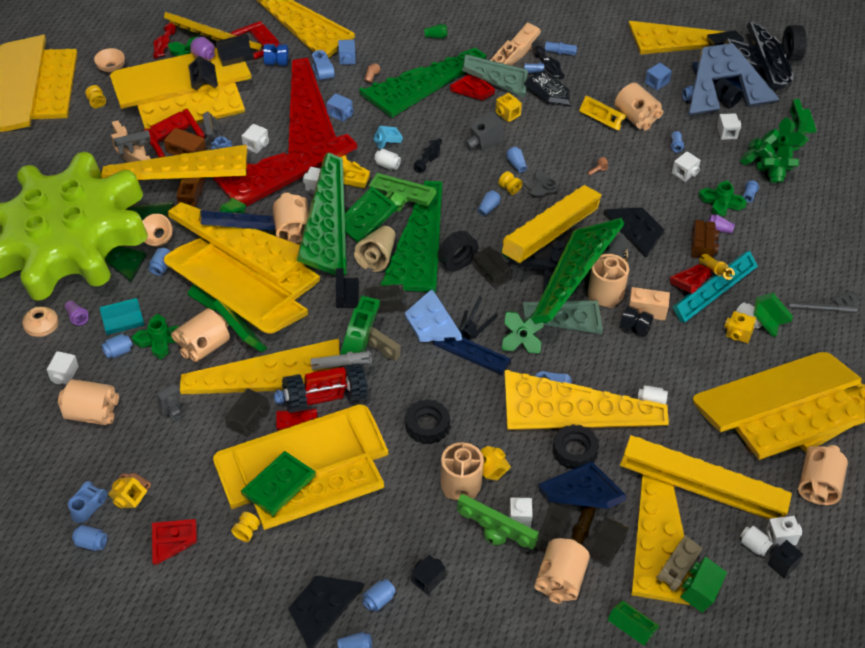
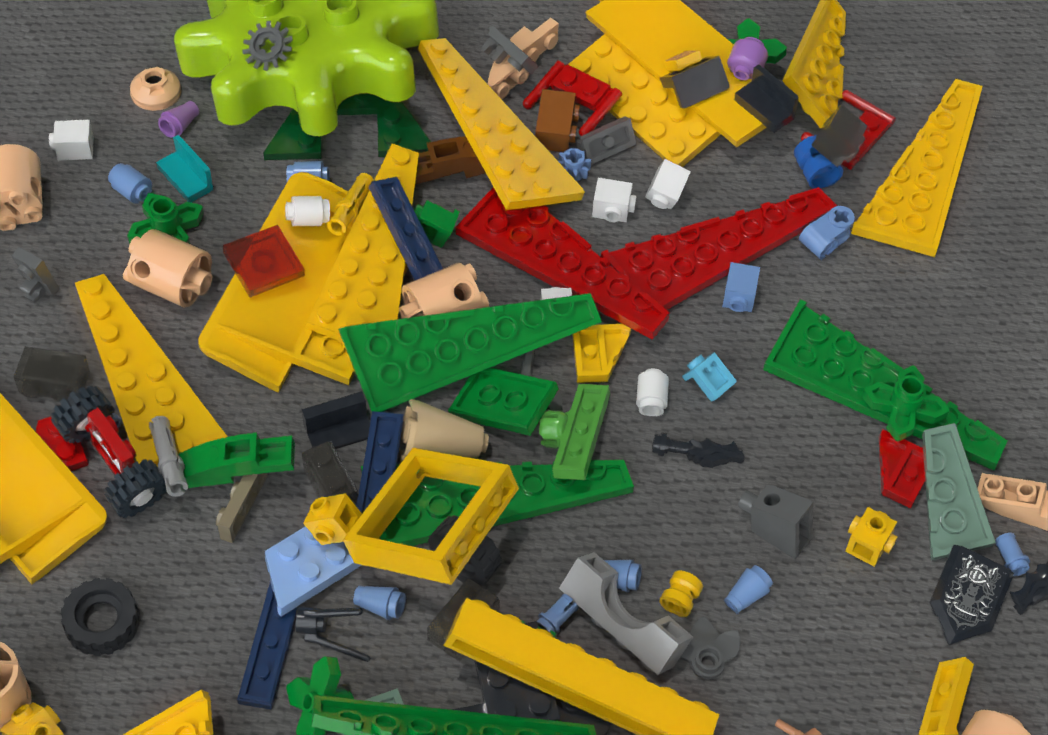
camera: 70 degrees right, 5 degrees up
(78, 220) = (258, 40): none -> dark grey gear
(153, 223) = (357, 142): light nougat piece -> none
(162, 41) = (767, 16): red piece -> none
(187, 73) = (683, 60): none -> yellow tile
(199, 257) = (307, 210): none -> white brick
(207, 241) = (347, 209): none -> yellow pin
(224, 286) = (263, 260): none -> clear red tile
(239, 326) = (193, 305): green tile -> none
(259, 112) = (667, 185): none -> white brick
(272, 35) = (840, 136): none -> clear smoke brick
(346, 52) = (883, 255): medium blue brick -> none
(371, 71) = (857, 304): nougat arm -> none
(388, 275) = (380, 455): none -> dark blue tile
(418, 295) = (331, 518): none -> yellow brick
(438, 31) = (1020, 371): green cone -> none
(442, 67) = (905, 402): none -> green plant
(461, 267) = (462, 540): none -> yellow window
(467, 297) = (383, 601): none -> medium blue cone
(501, 229) = (557, 614): none -> medium blue pin
(535, 197) = (594, 589): none -> light grey arch

